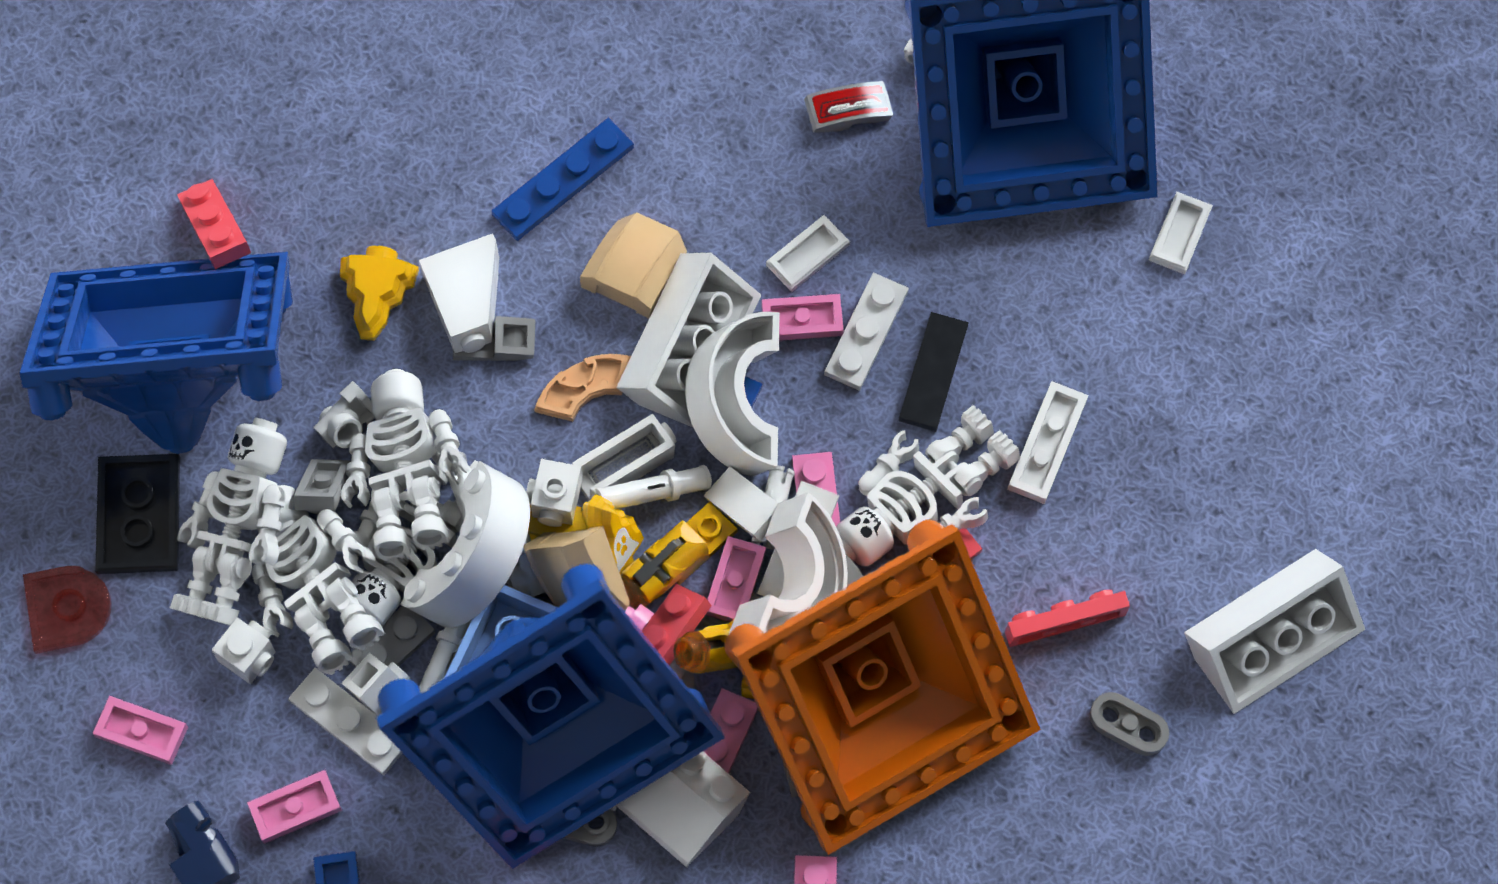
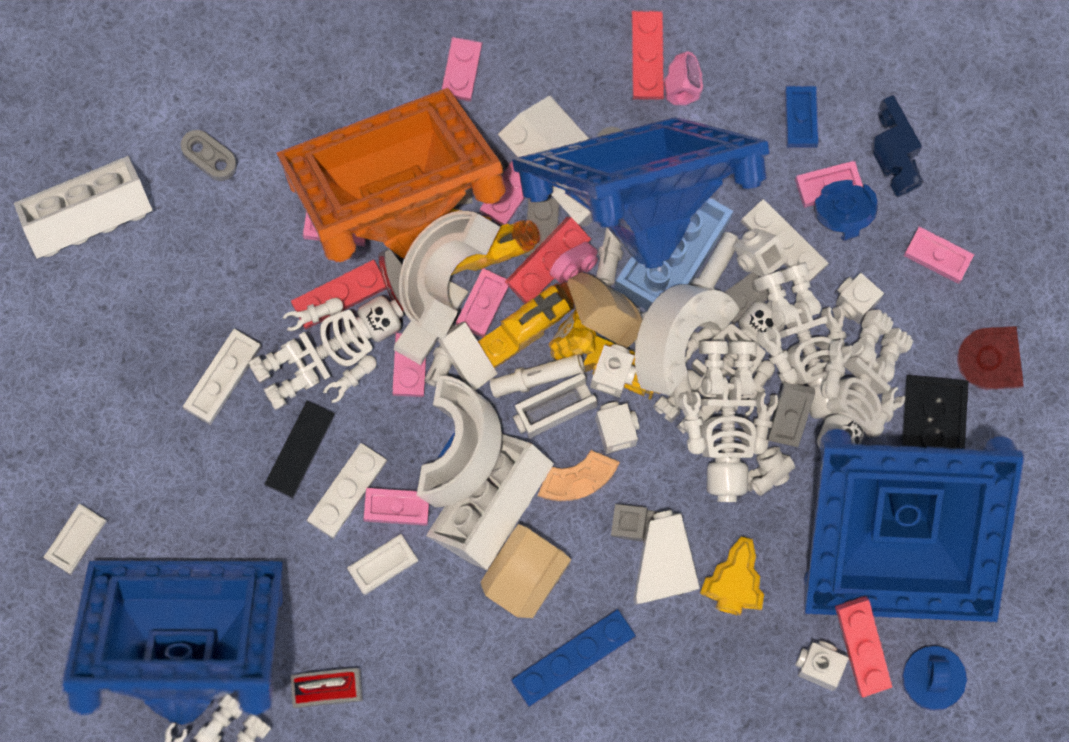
camera: 175 degrees left, 5 degrees up
(126, 213) = (934, 678): none -> blue tile
(263, 203) = (821, 665): none -> white brick
(268, 759) = (846, 207): none -> blue tile
(541, 439) = (617, 427): none -> white brick
(1066, 617) = (237, 237): coral plate -> none

